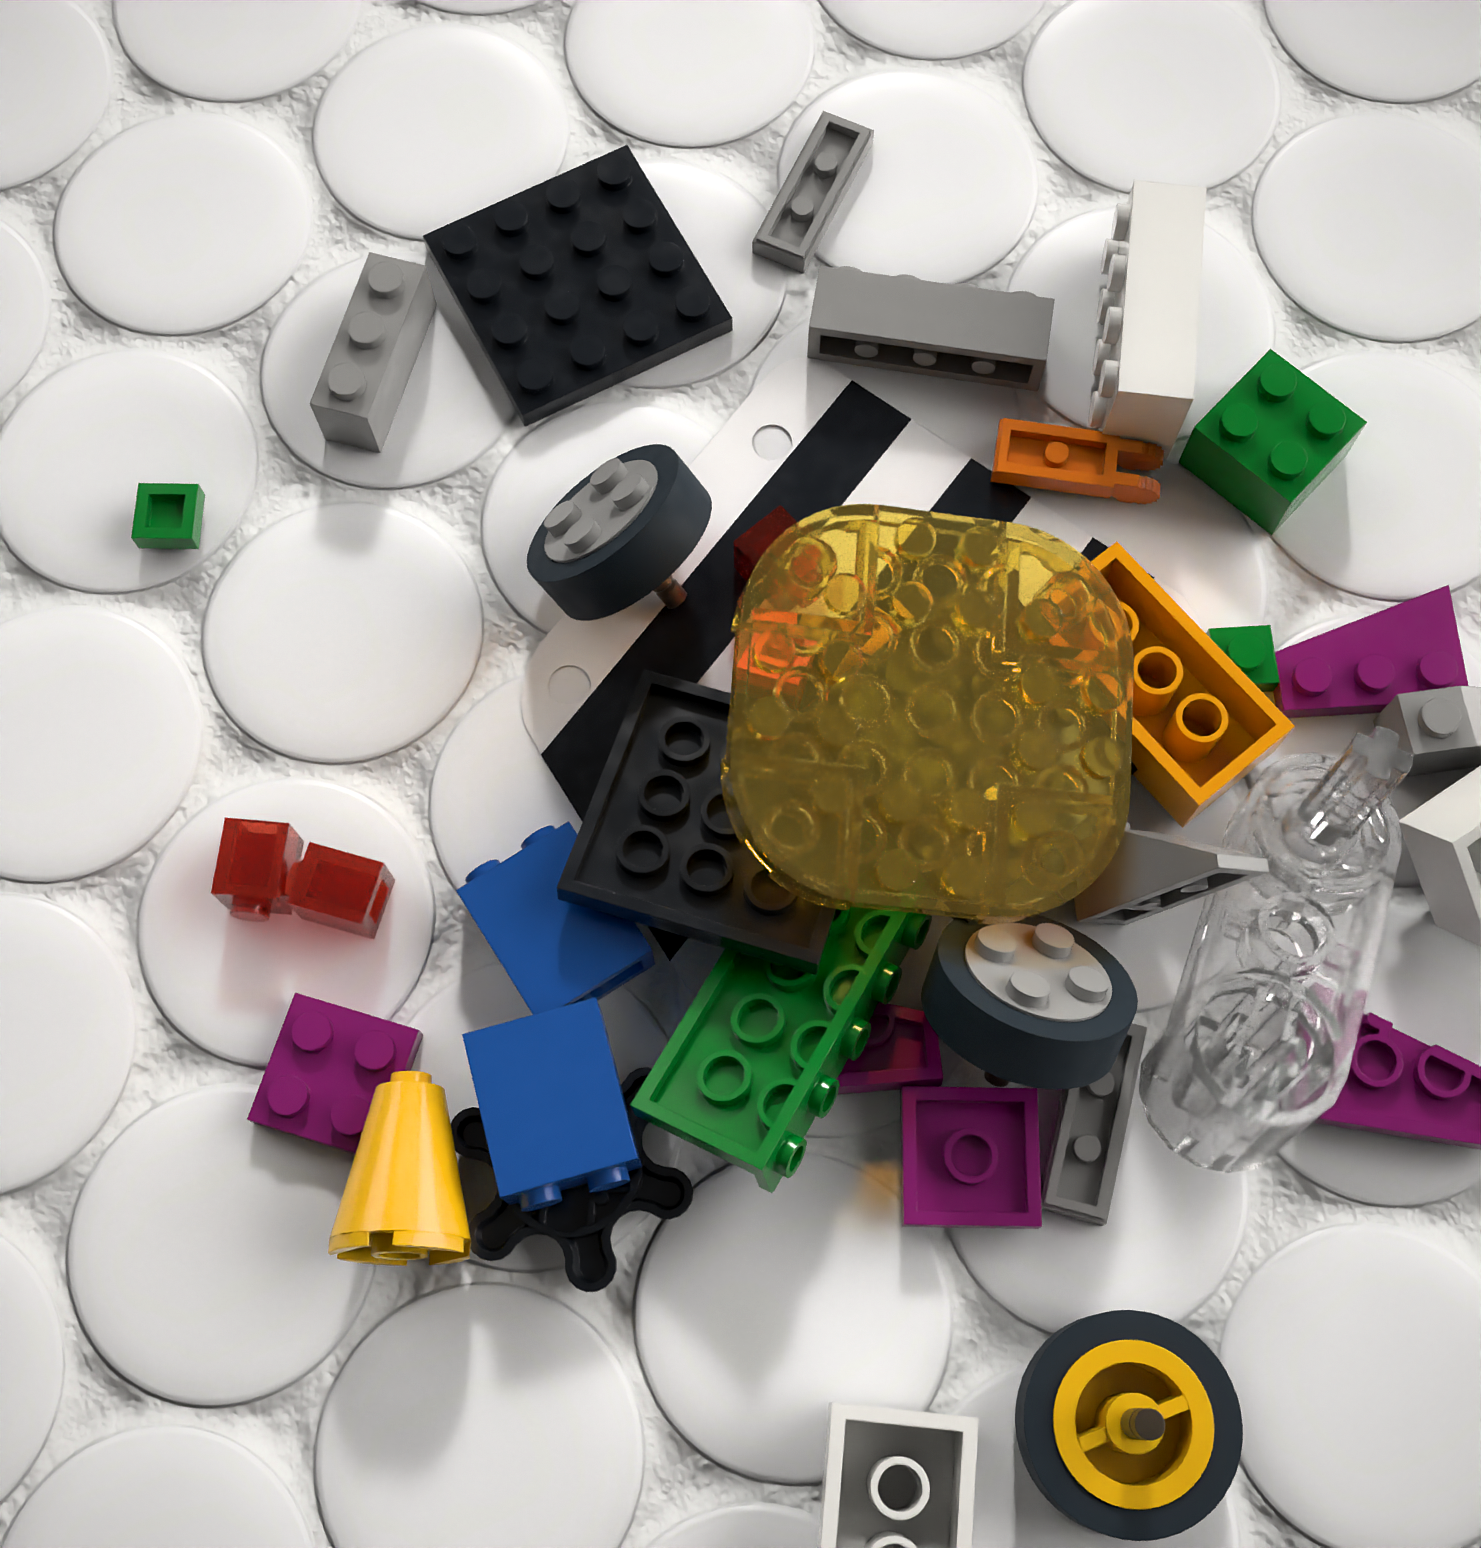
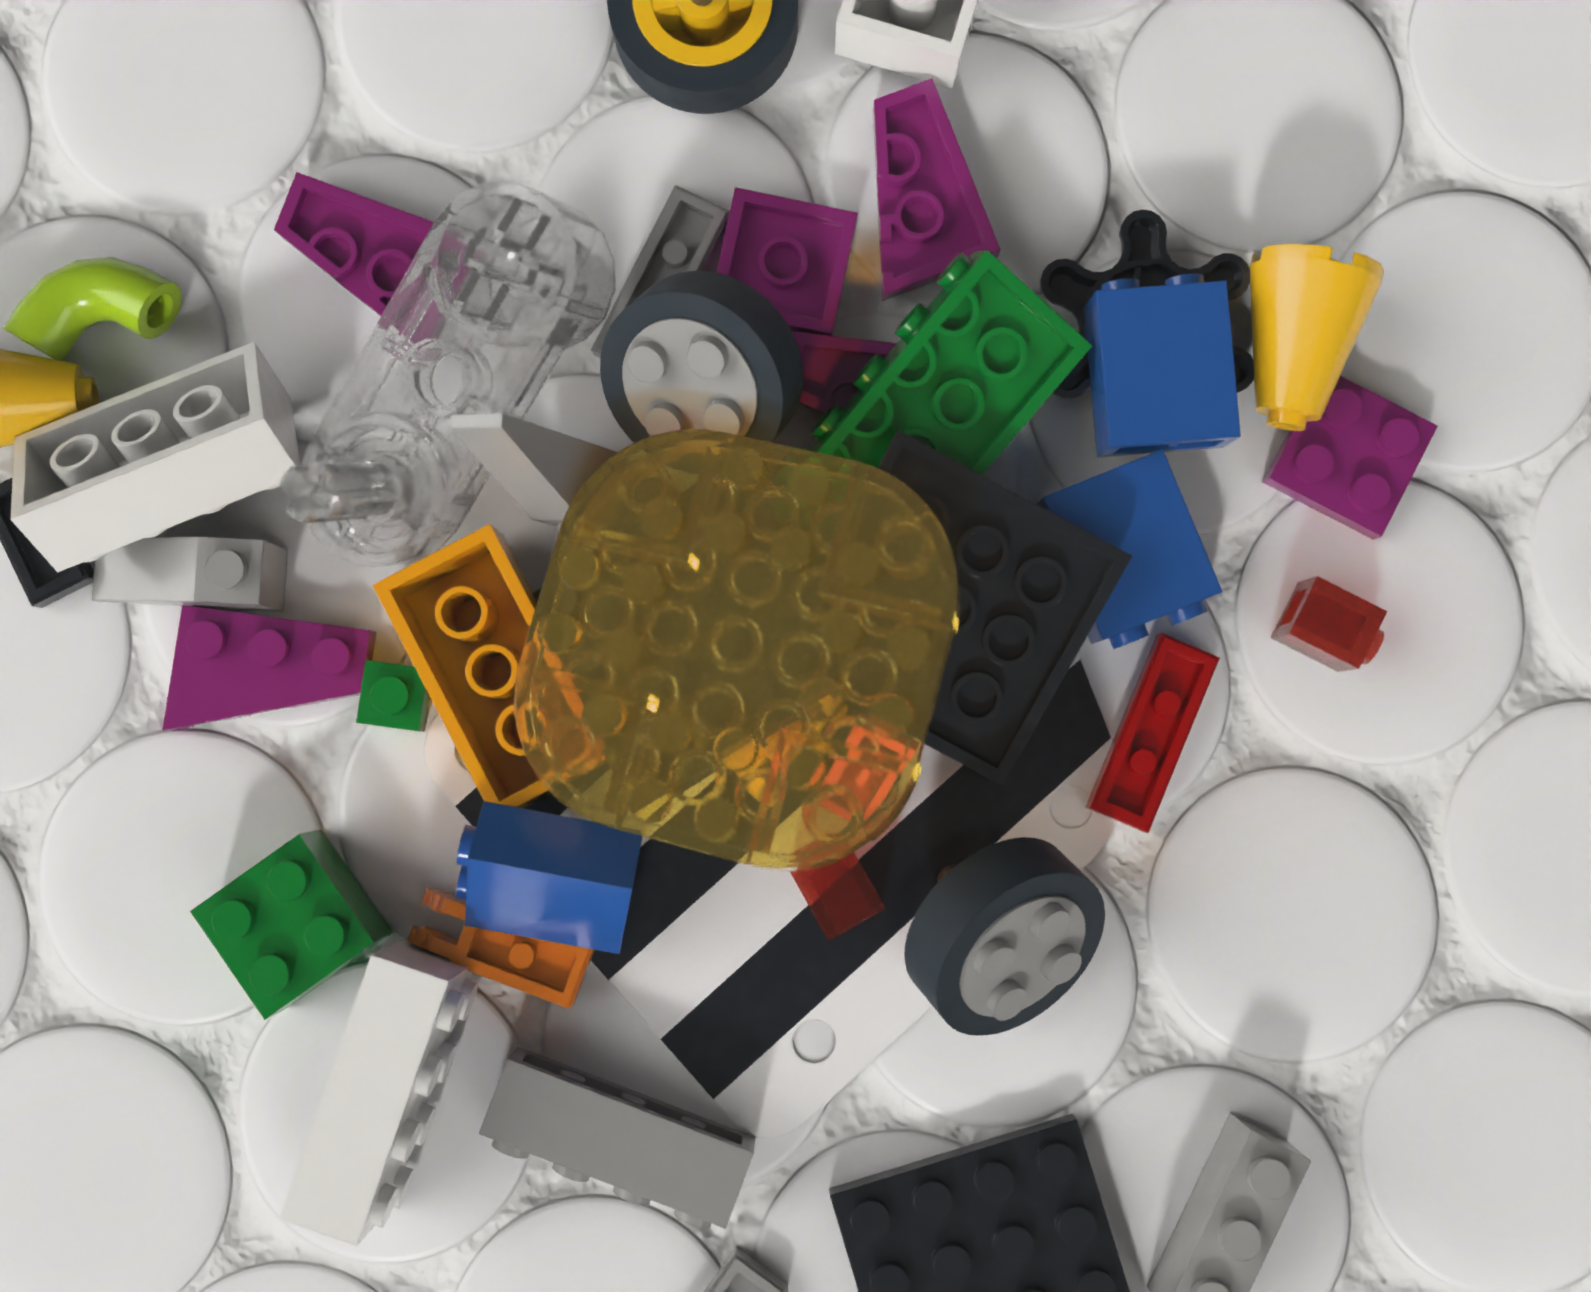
camera: 170 degrees left, 15 degrees up
(168, 516) = (1465, 1072): green plate -> none
(255, 867) = (1410, 664): clear red brick -> none
(501, 763) = (1152, 732): none -> red tile
(834, 1264) = (923, 191): none -> magenta wing
(1074, 502) = (547, 877): none -> blue brick

